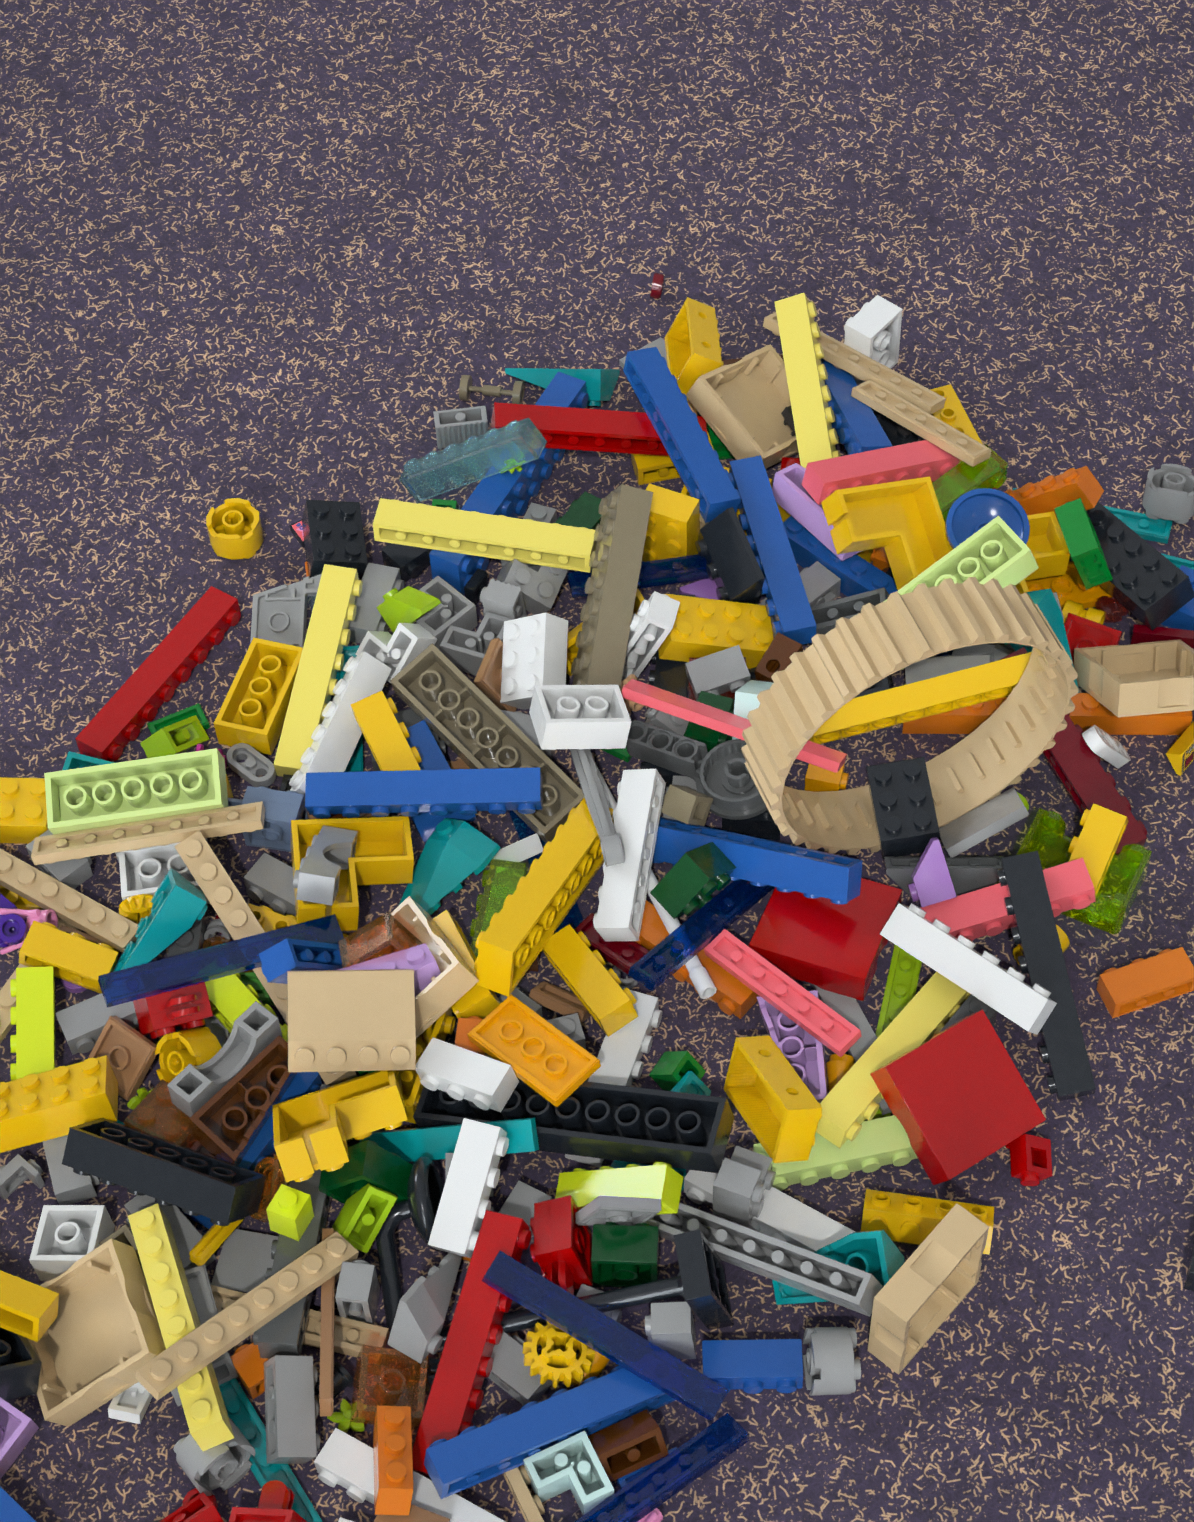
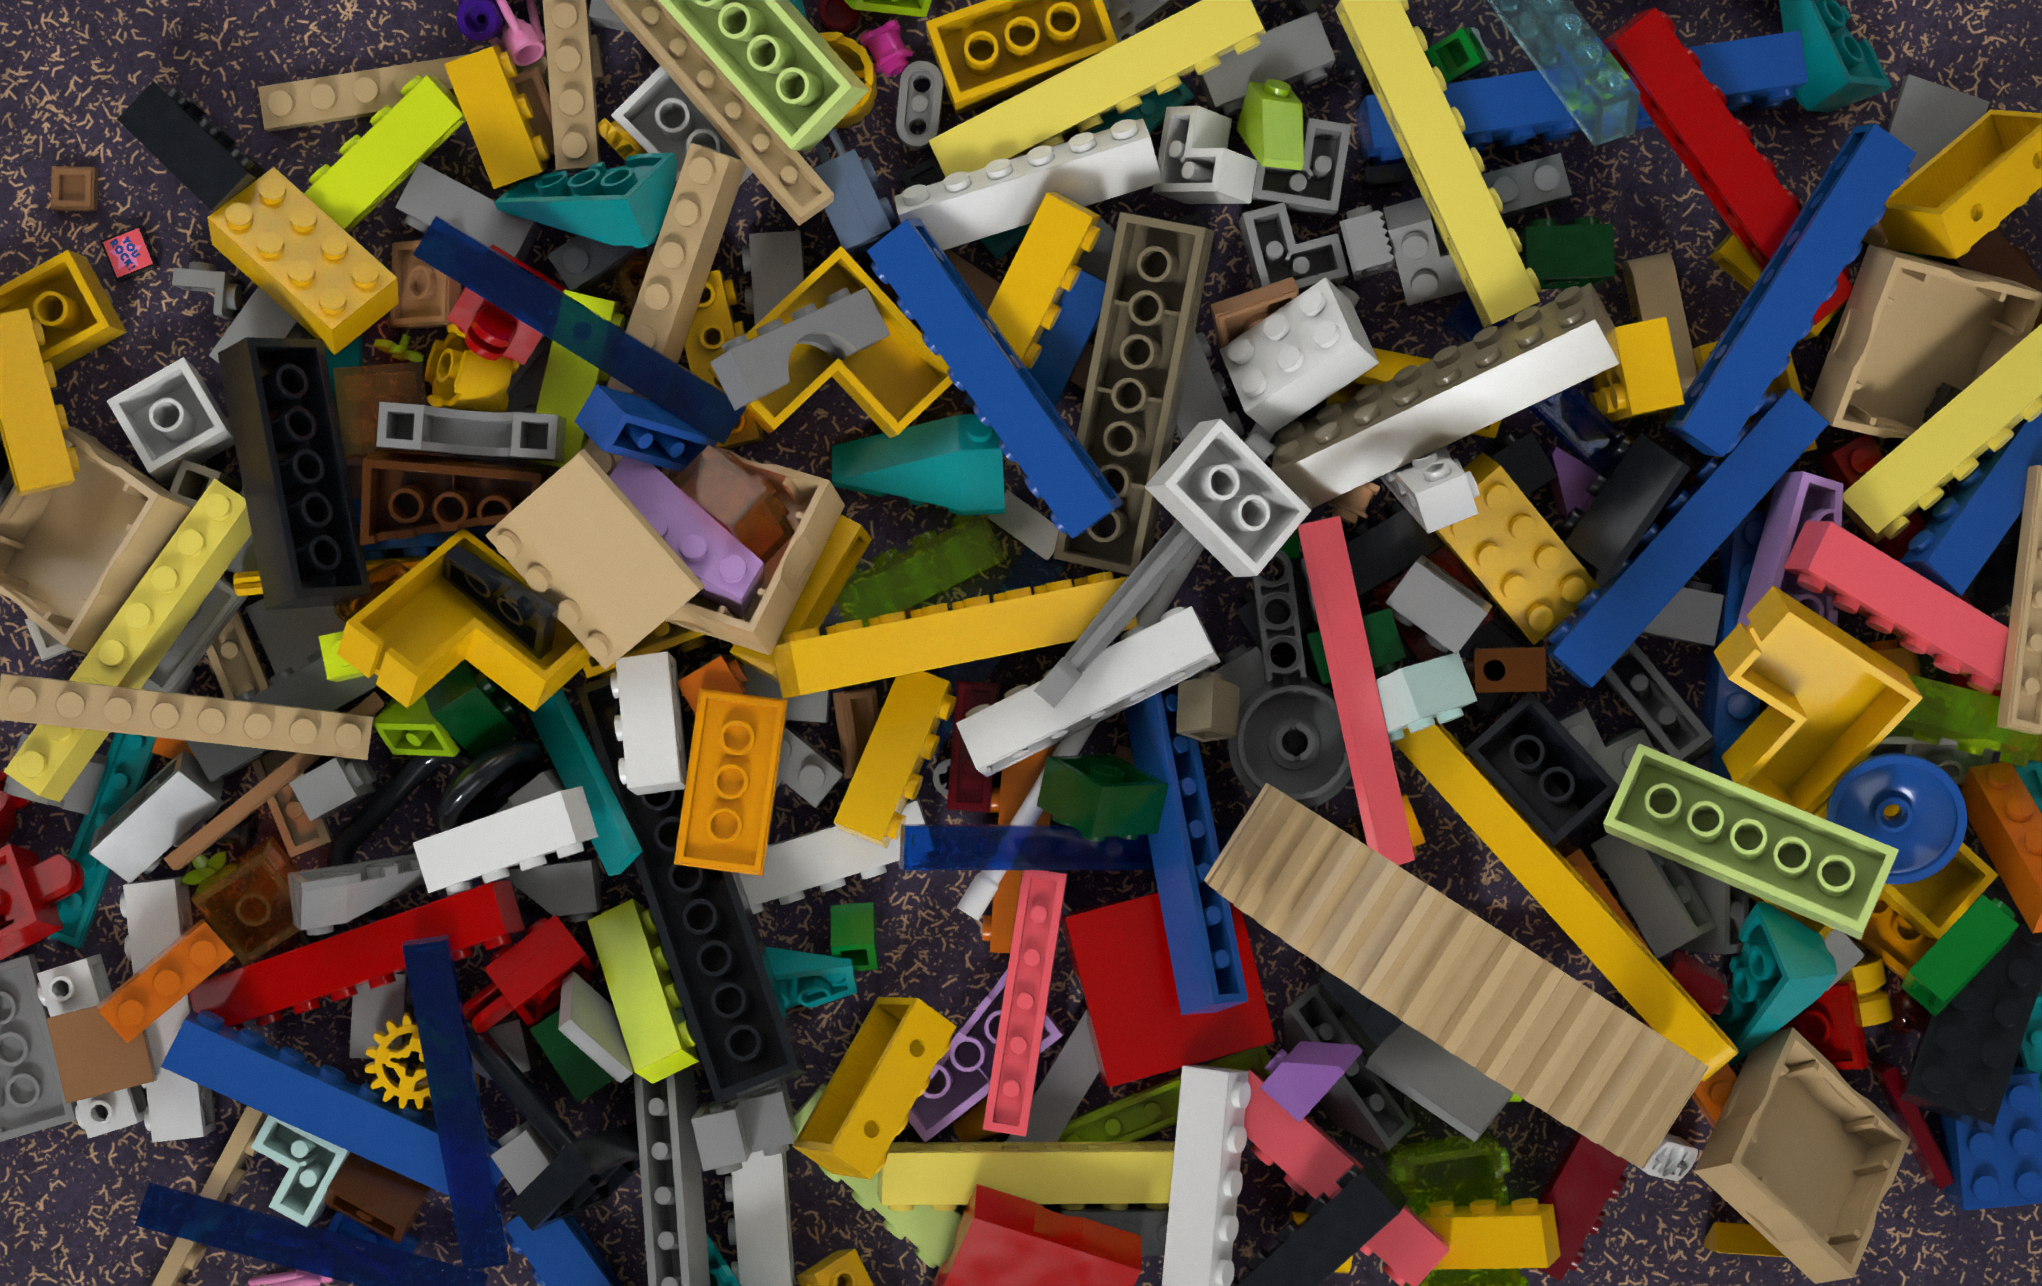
camera: 55 degrees right, 35 degrees up
(310, 1108) = (504, 600): none -> black wing

